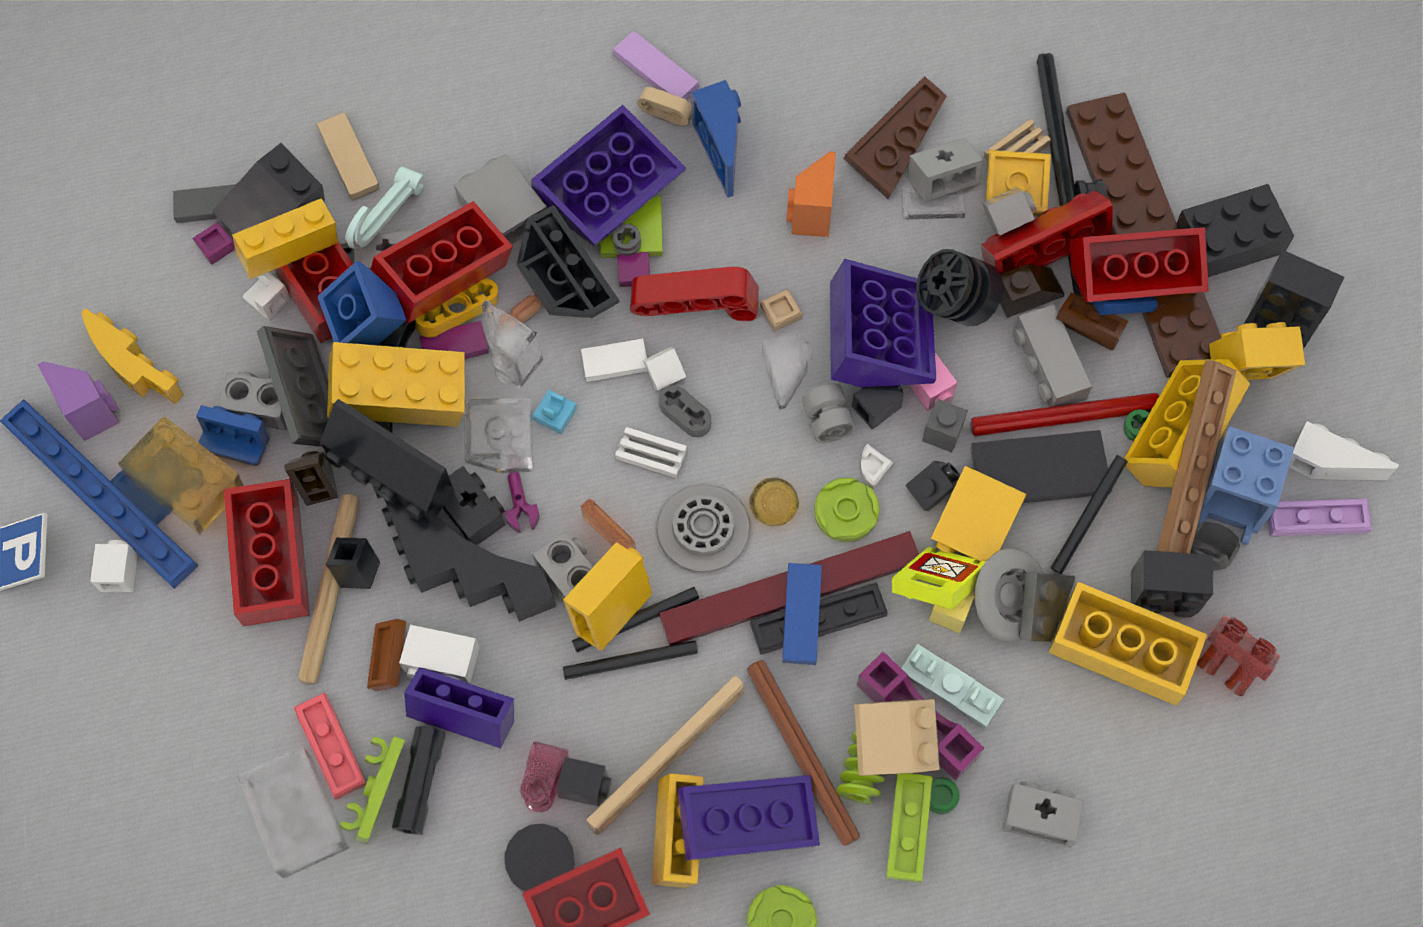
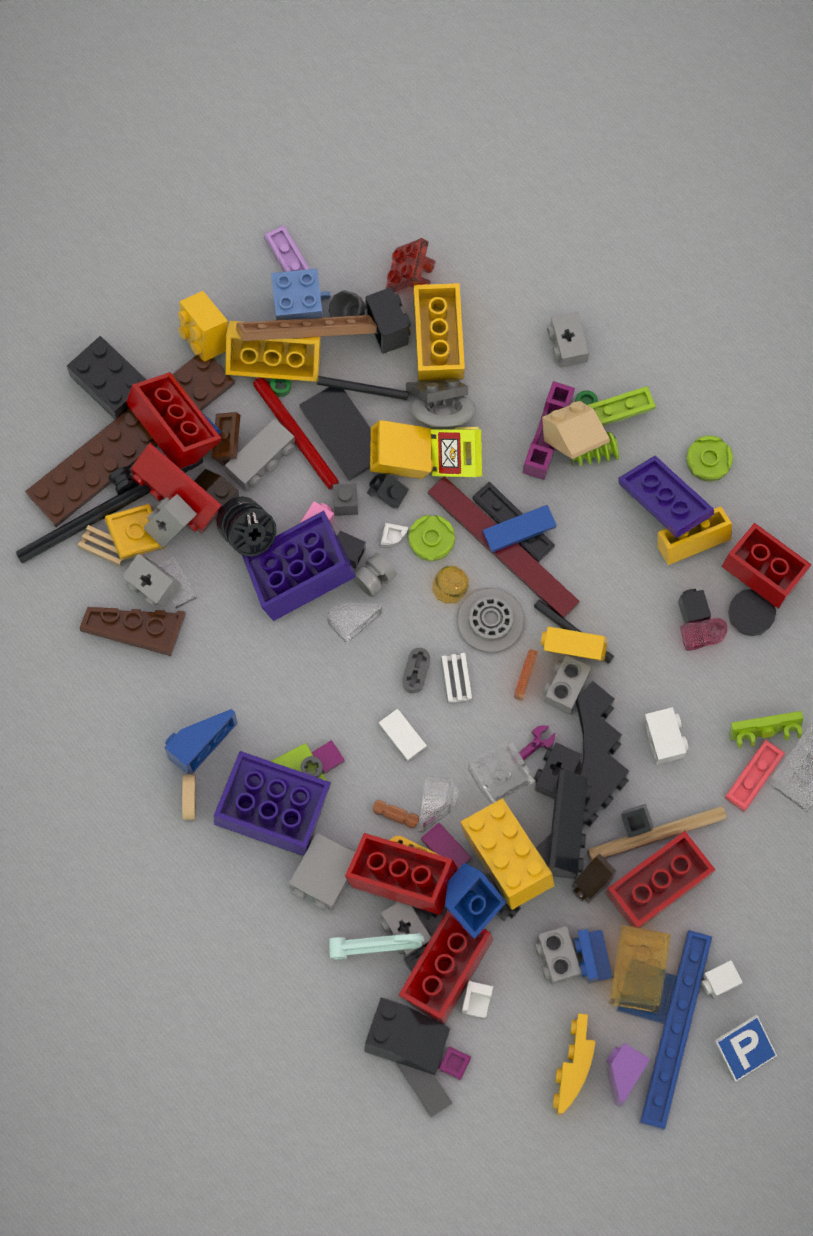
camera: 120 degrees left, 5 degrees up
(285, 238) = (443, 985): yellow brick -> none
(297, 382) = (535, 925): dark grey tile -> none
(348, 156) = (338, 1007): tan tile -> none
(386, 655) = (681, 769): dark orange tile -> none
(413, 805) = (762, 702): black axle -> none
(459, 707) = (692, 702): dark purple brick -> none
(554, 411) = (459, 754): medium azure tile -> none
(561, 269) = (362, 794): black wedge -> none
(630, 660) = (601, 621): black bar -> none
(654, 66) = (157, 823): lavender tile -> none
(664, 368) = (393, 696): white tile -> none
(665, 755) = (650, 567): tan tile -> none
(696, 291) = (332, 702): red beam -> none
(781, 310) = (309, 644): tan tile -> none
(803, 752) = (603, 492): dark orange axle -> none
(811, 199) = (218, 653): orange slope -> none
(952, 686) = (515, 425): light aqua plate -> none
(1295, 294) = (155, 316): black brick -> none
(1331, 457) = (248, 265): white slope -> none

